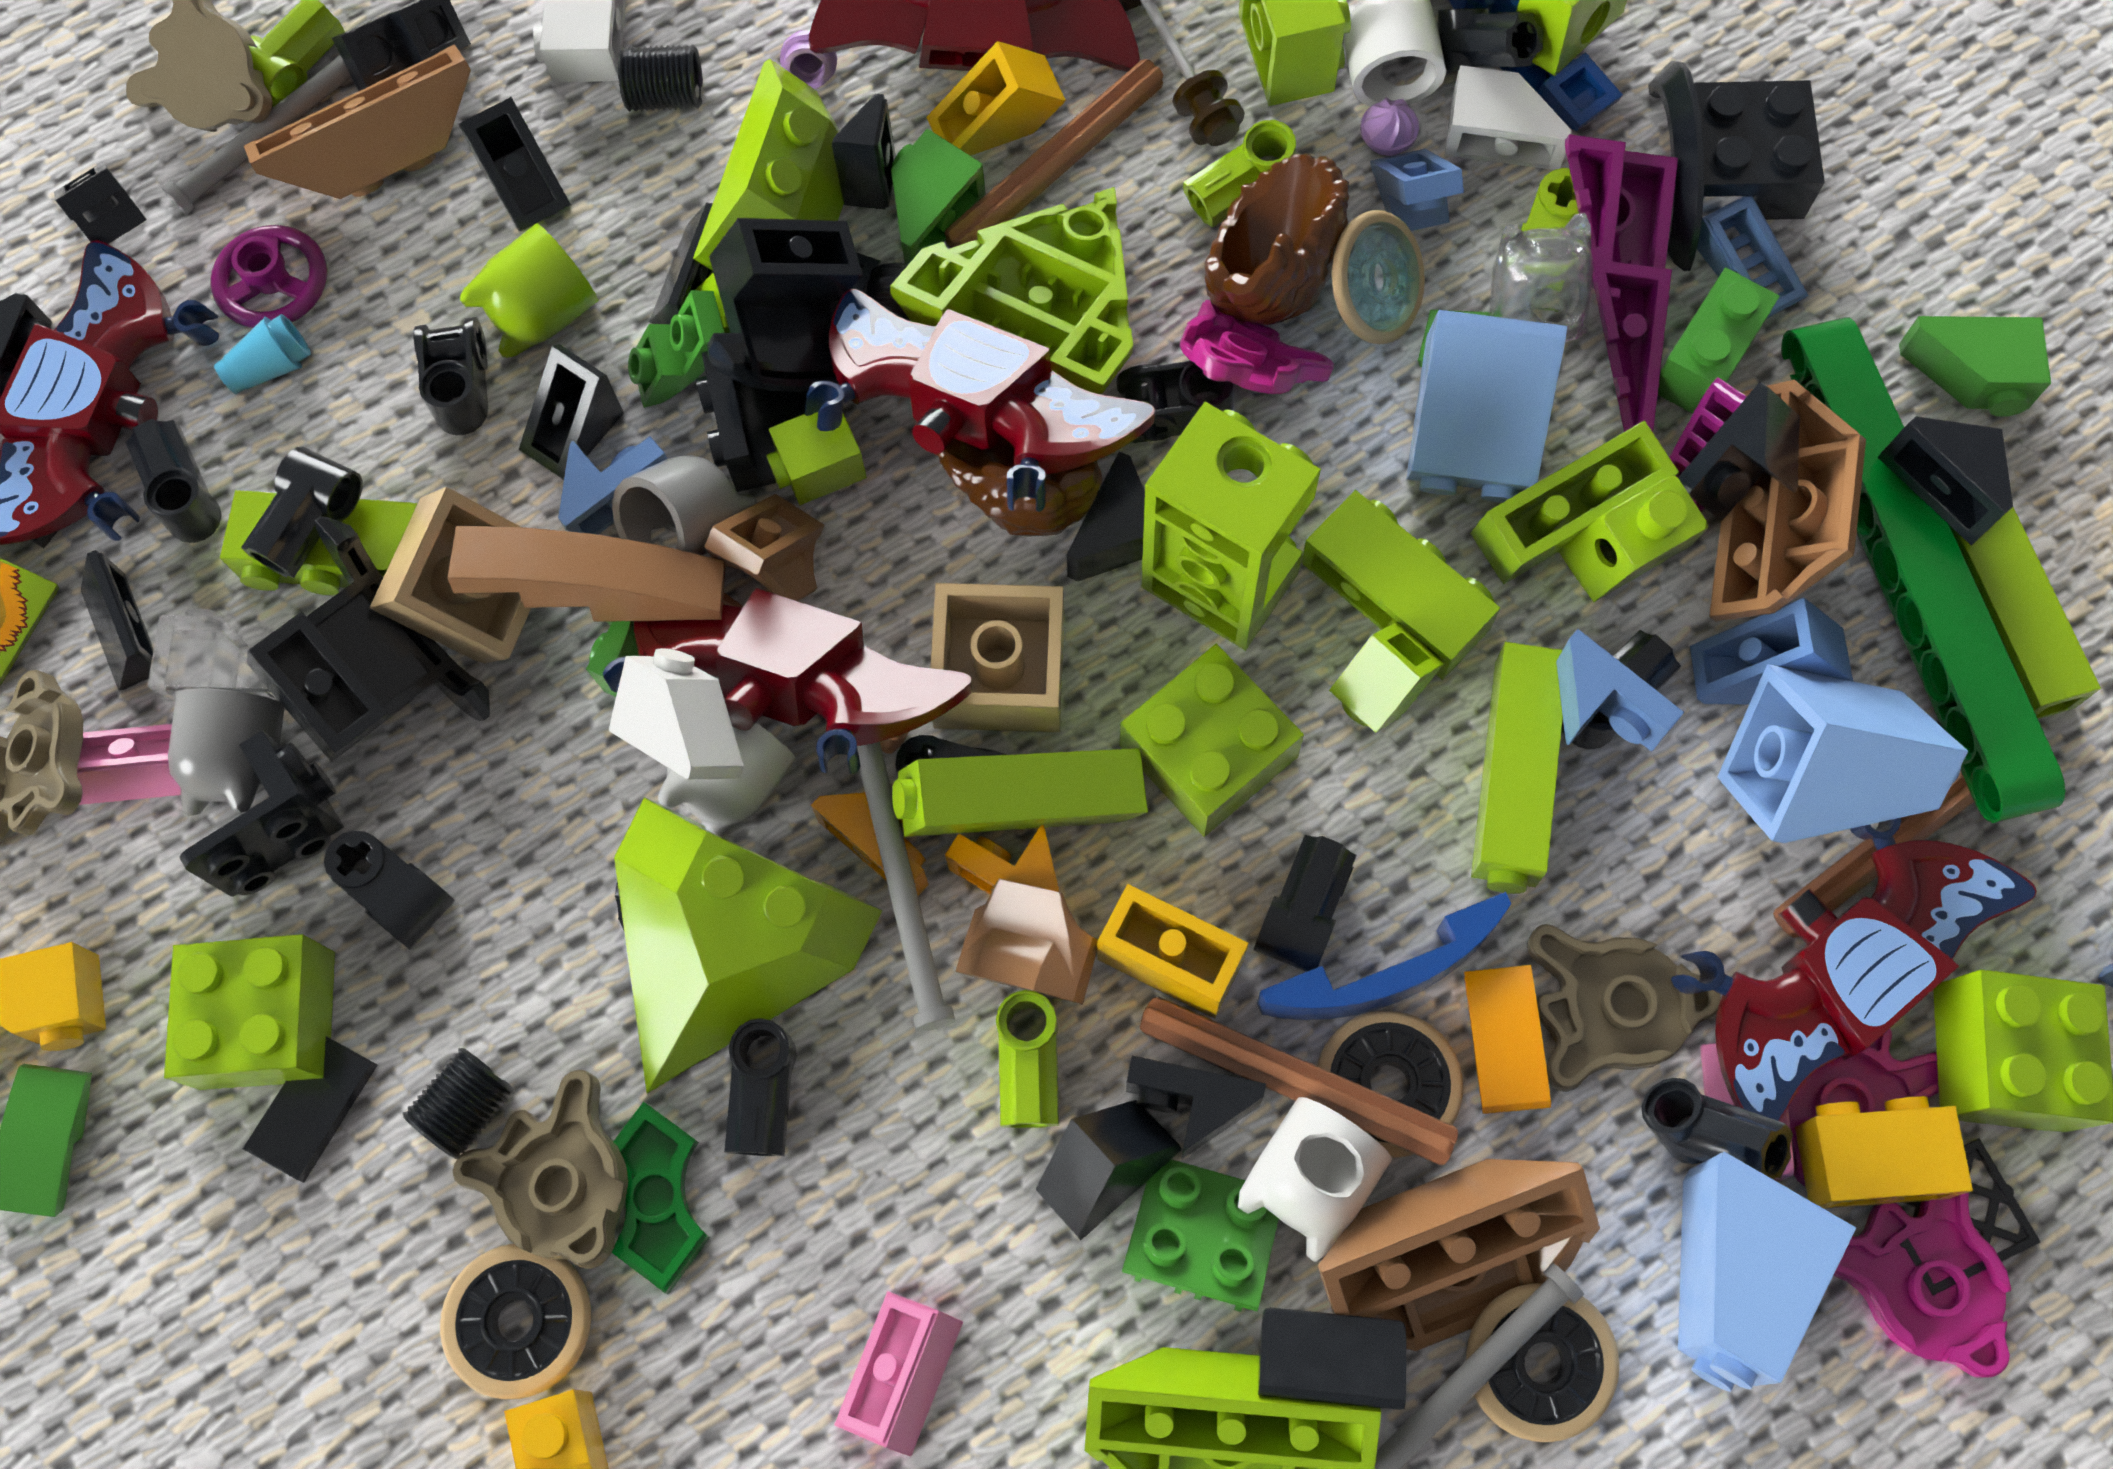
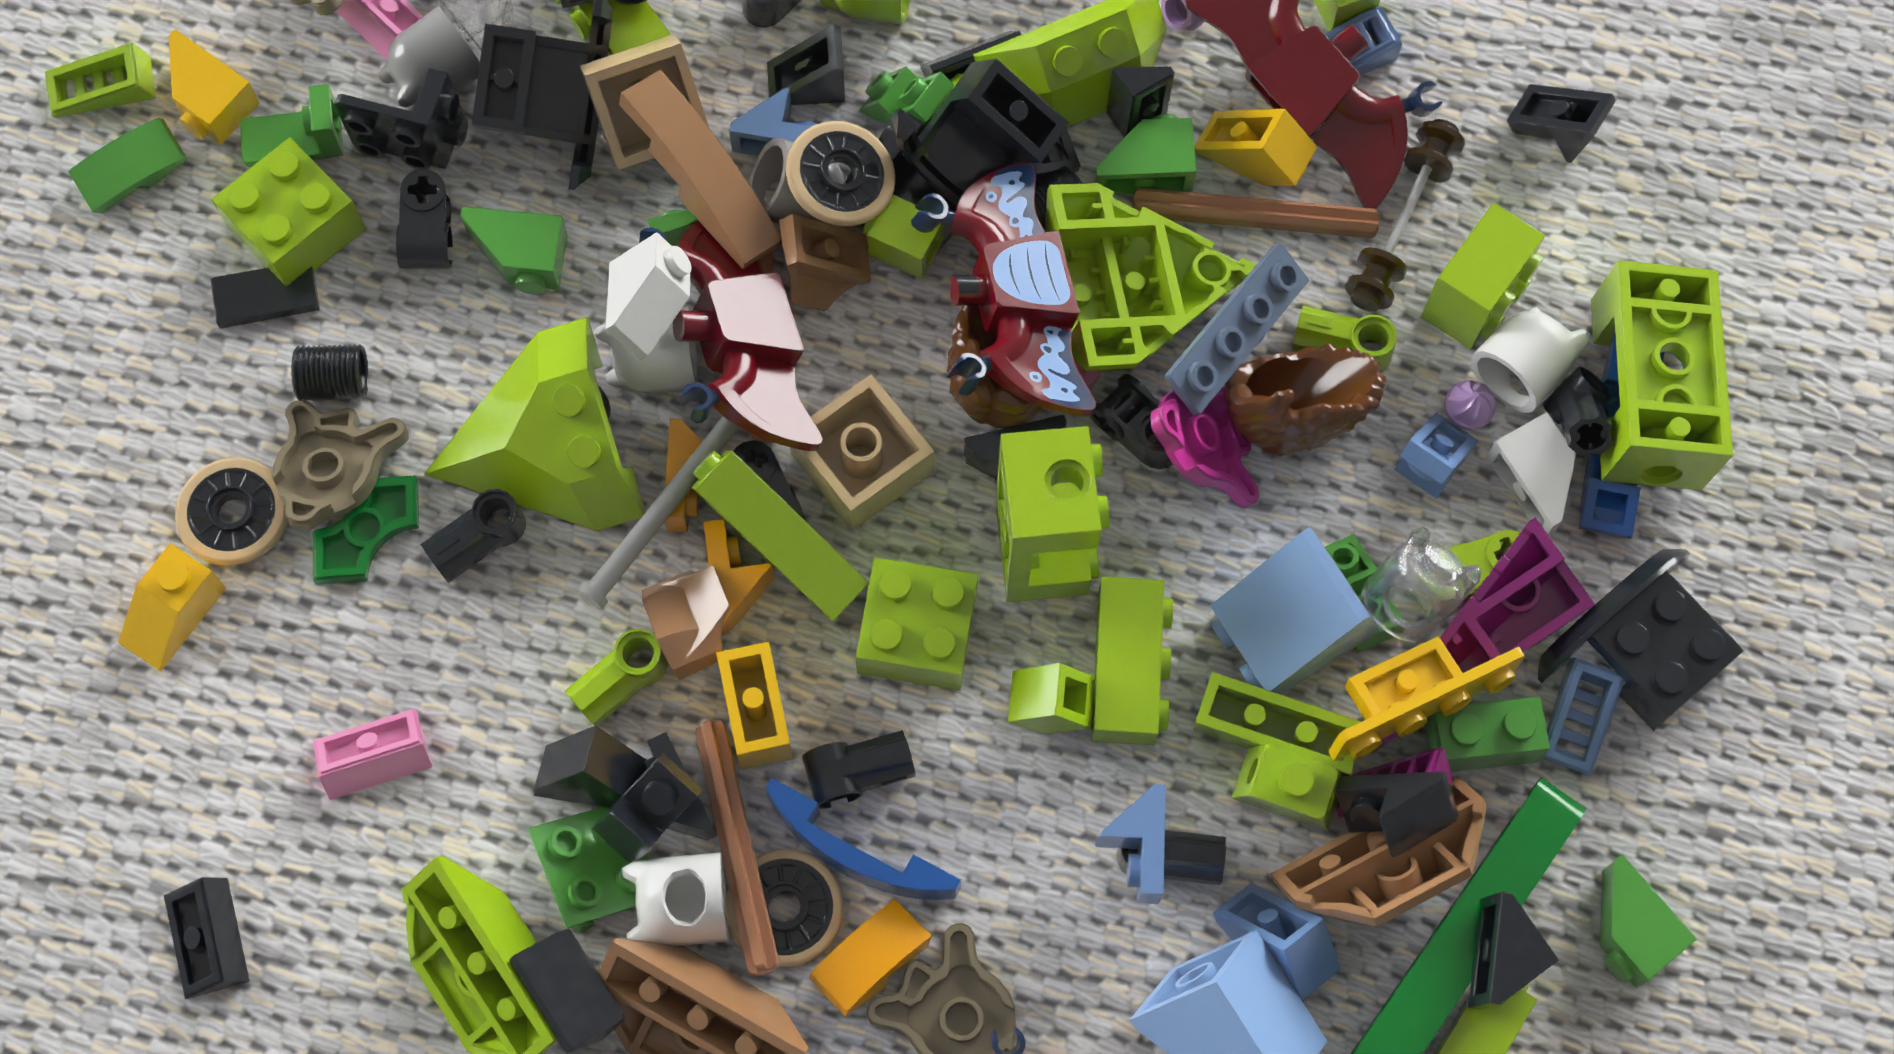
camera: 45 degrees right, 0 degrees up
(181, 917) = (314, 129): none -> bright green bracket
(494, 815) = (520, 245): none -> bright green slope
(707, 485) = (836, 202): none -> wheel
(1167, 248) = (1236, 329): none -> sand blue bracket
(1203, 1135) = (647, 809): none -> black slope
(1389, 242) = (1323, 457): clear light blue wheel -> none
(1519, 770) = (1054, 832): lime brick -> none
(1641, 359) = (1412, 687): none -> yellow bracket

